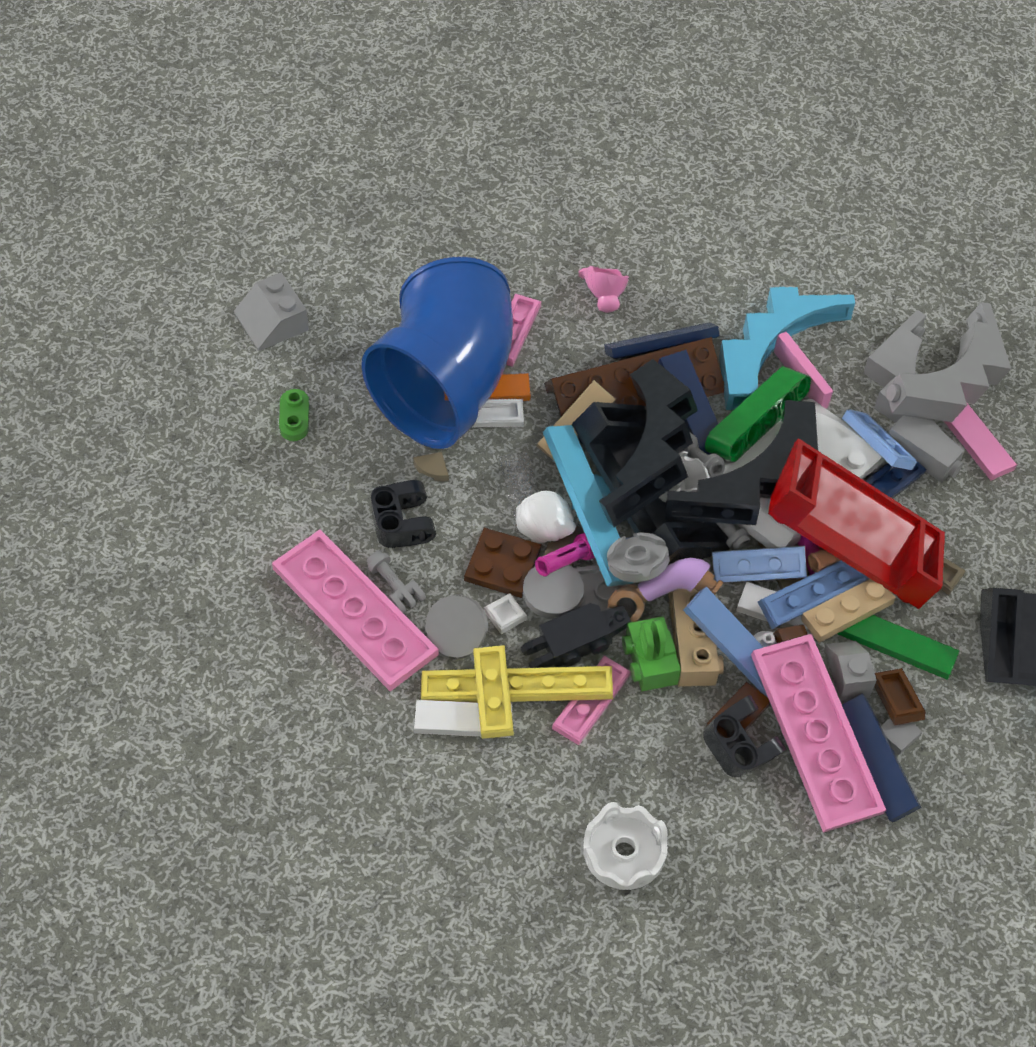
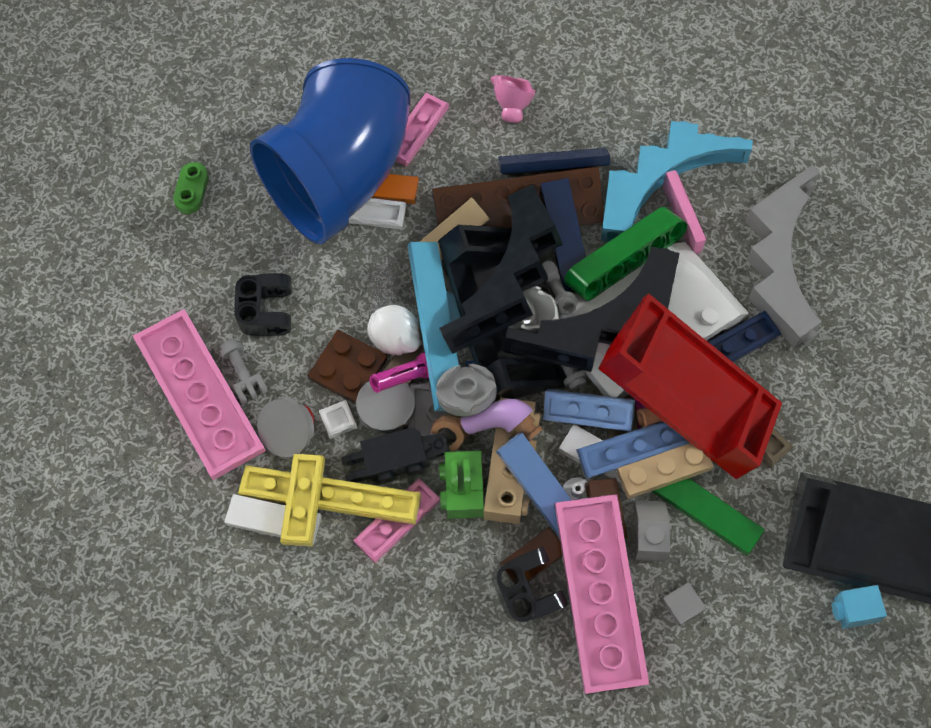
camera: 15 degrees right, 10 degrees up
(272, 312) = (192, 82): light grey slope -> none
(432, 466) = (305, 258): dark tan tile -> none
(629, 826) = (385, 654): white plate -> none
(879, 439) = (739, 297): light blue tile -> none
(881, 760) = (656, 629): dark blue tile -> none
(899, 697) = (691, 568): reddish brown tile -> none
(946, 392) = (812, 260): light grey arch -> none
(981, 444) = (842, 310): bright pink tile -> none

